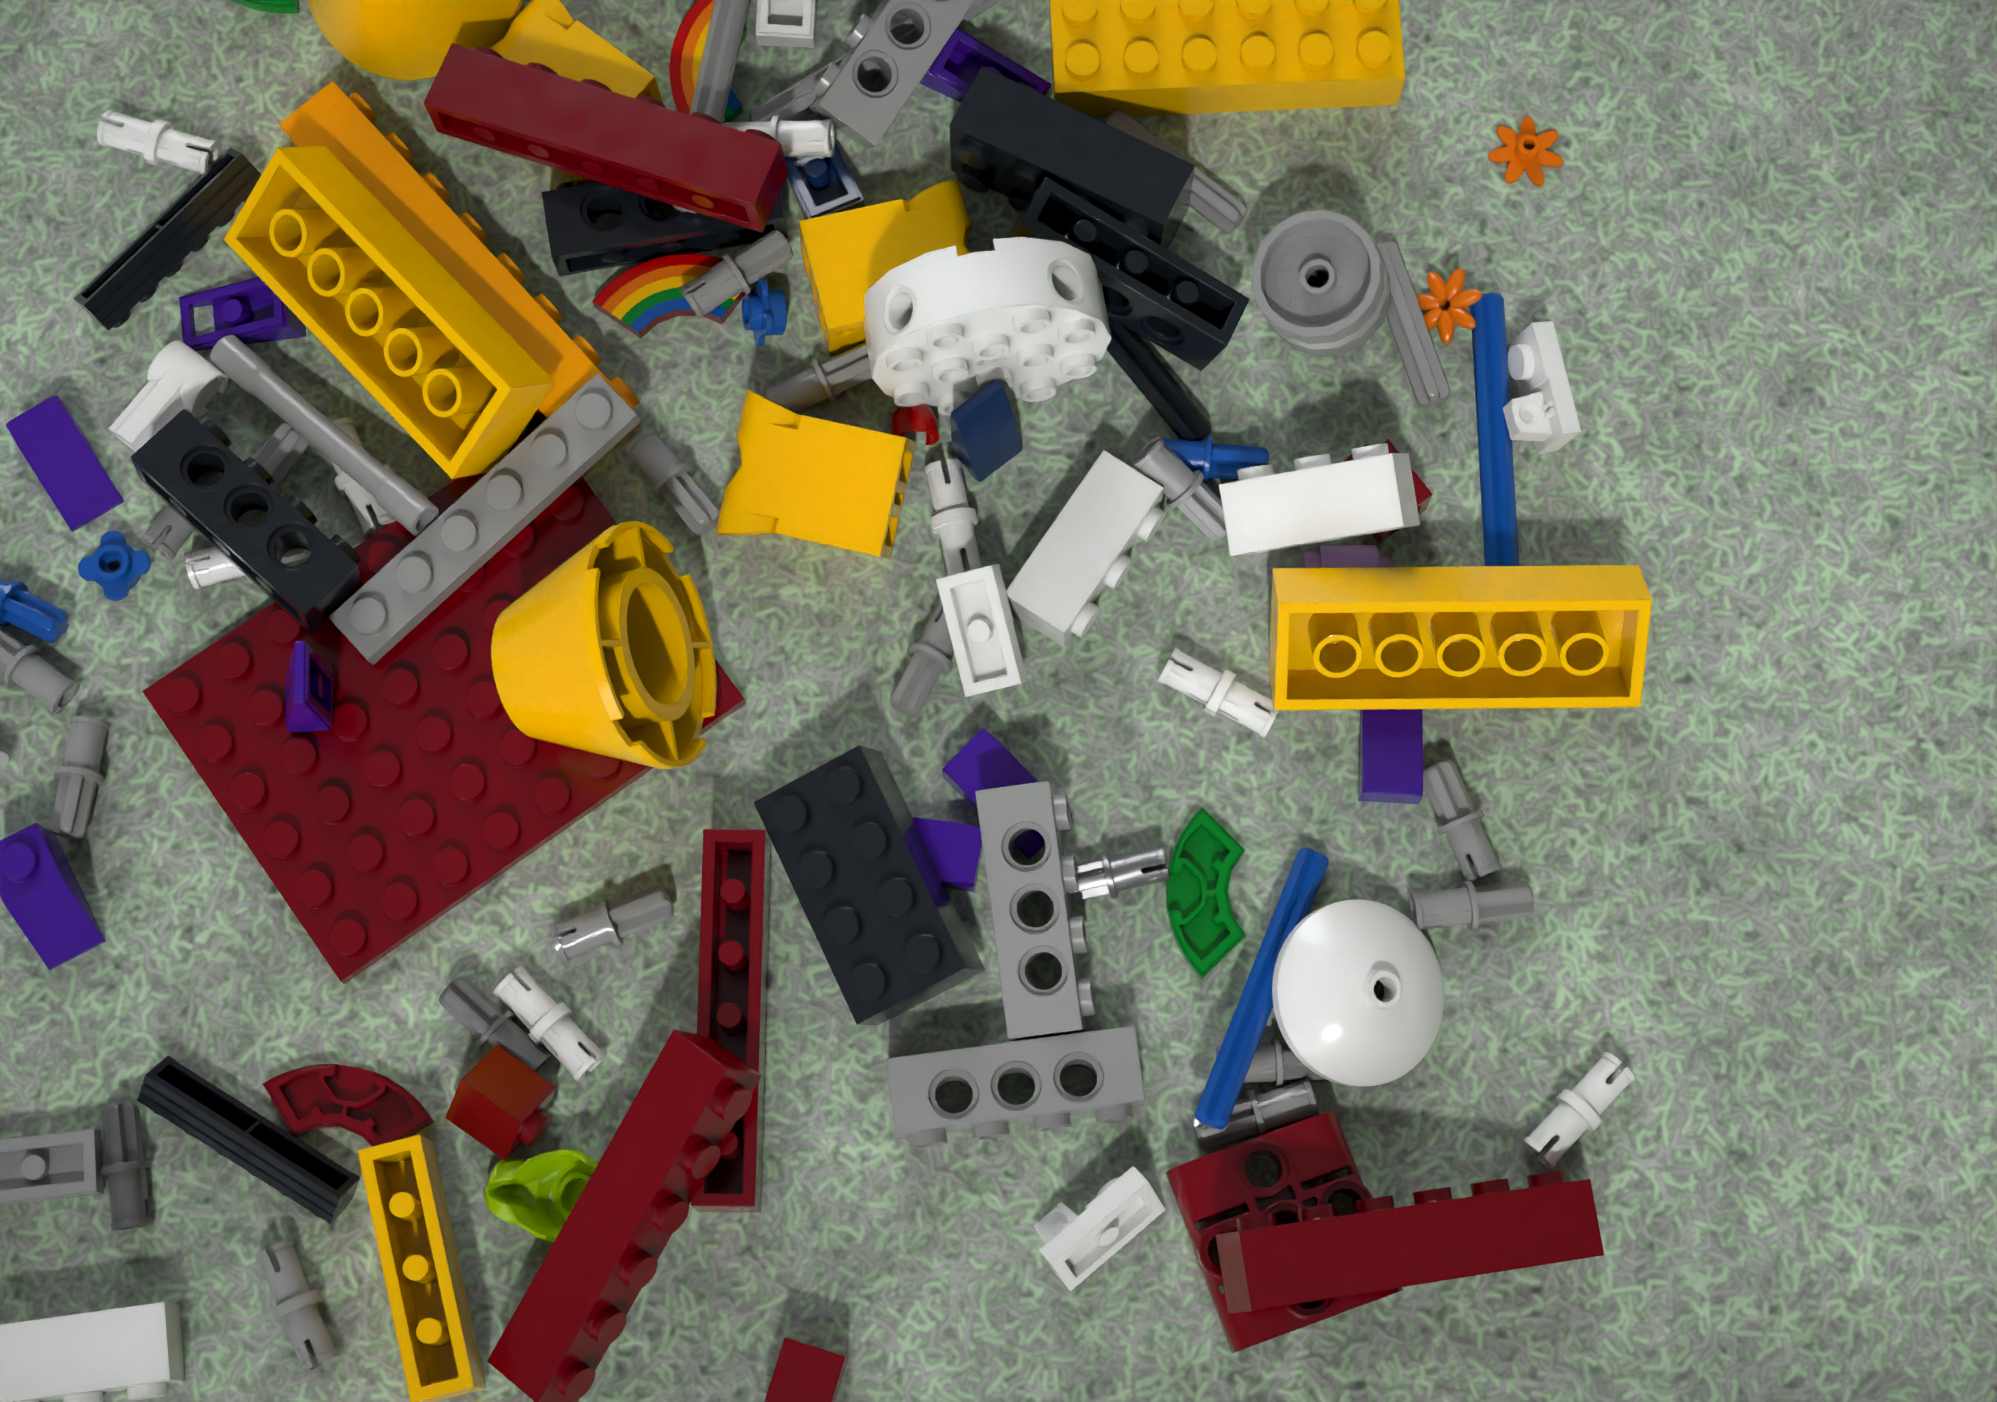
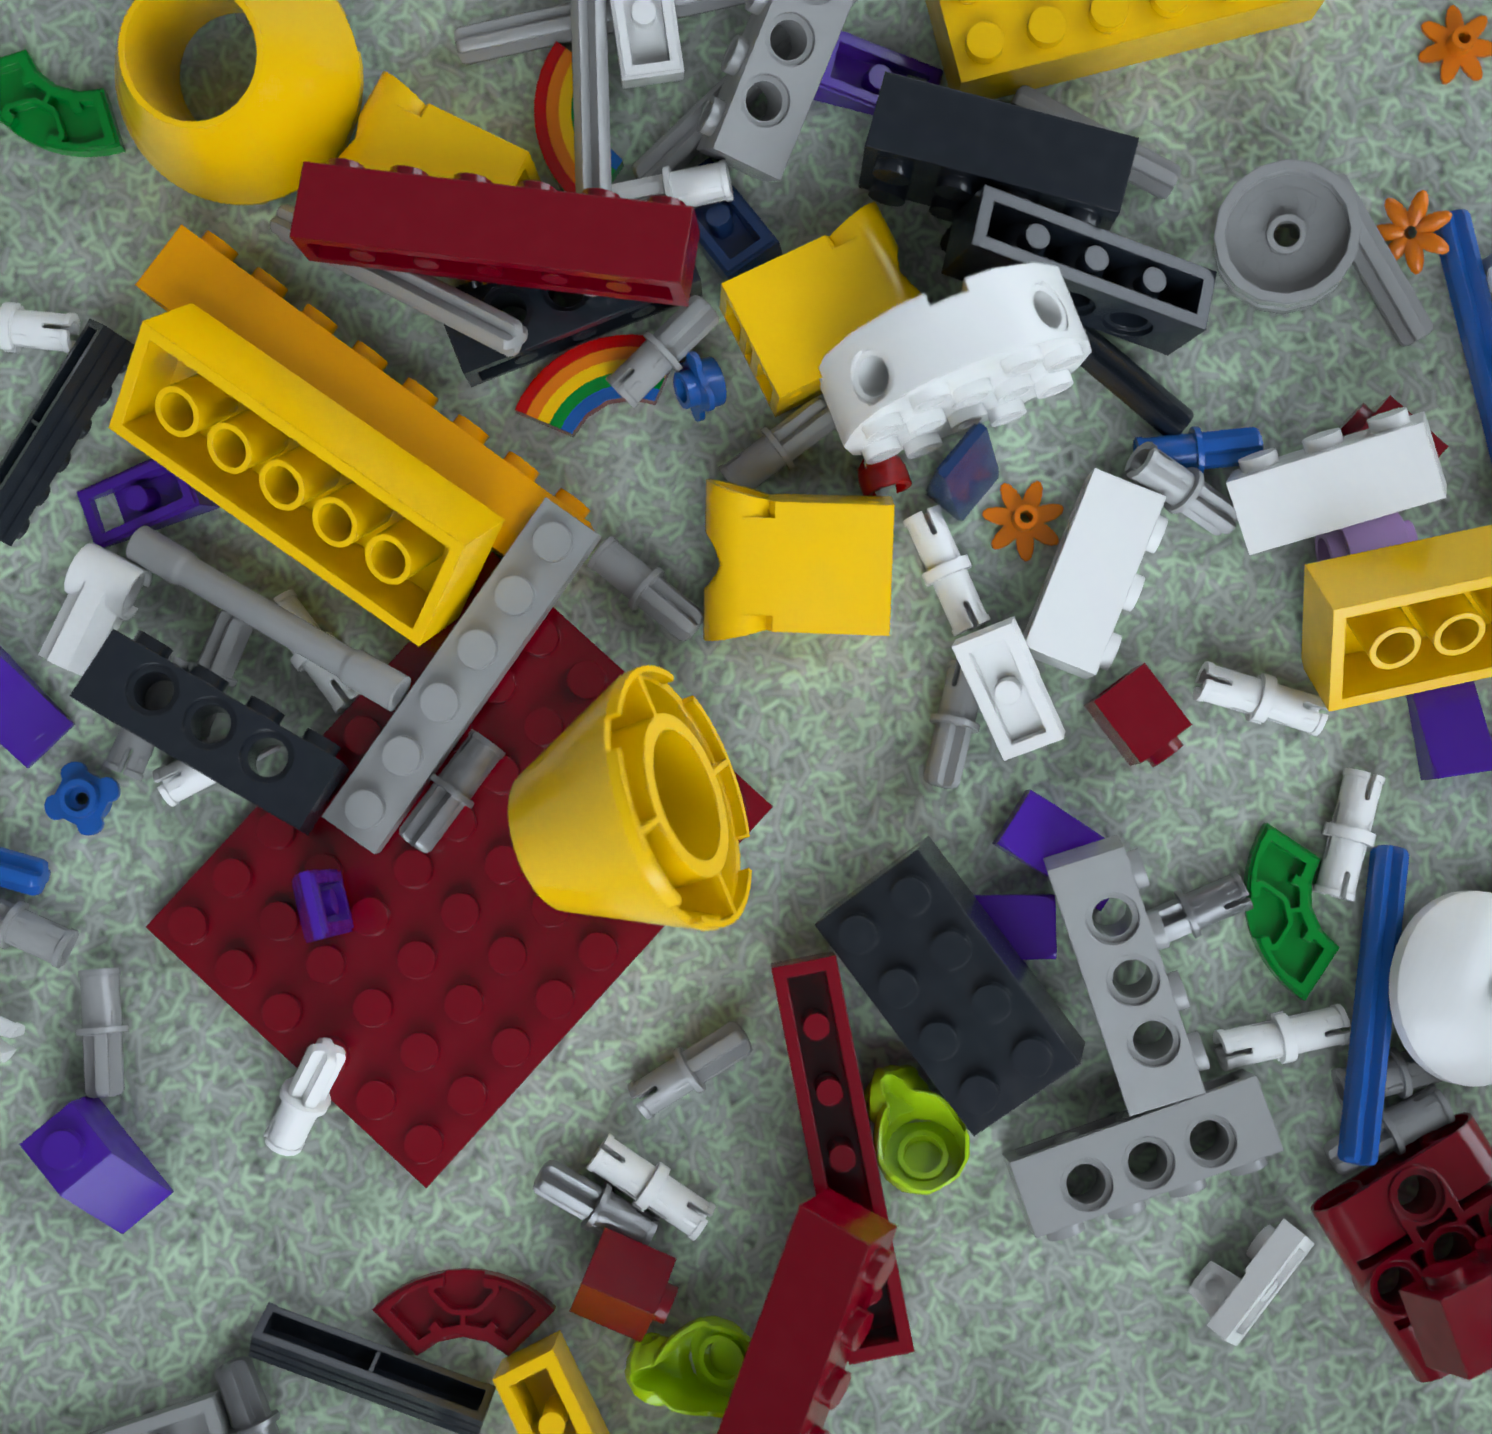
camera: 10 degrees left, 10 degrees up
(249, 869) = (304, 1097): none -> white axle
(450, 618) = (450, 792): none -> flat silver axle
(537, 184) = (431, 297): none -> light grey axle
(799, 1045) = (917, 1154): none -> lime hair
(1036, 500) = (1015, 528): none -> orange plant
(1100, 684) = (1139, 717): none -> dark red brick
(1172, 1006) = (1281, 1037): none -> white pin
(1277, 833) = (1349, 834): none -> white pin

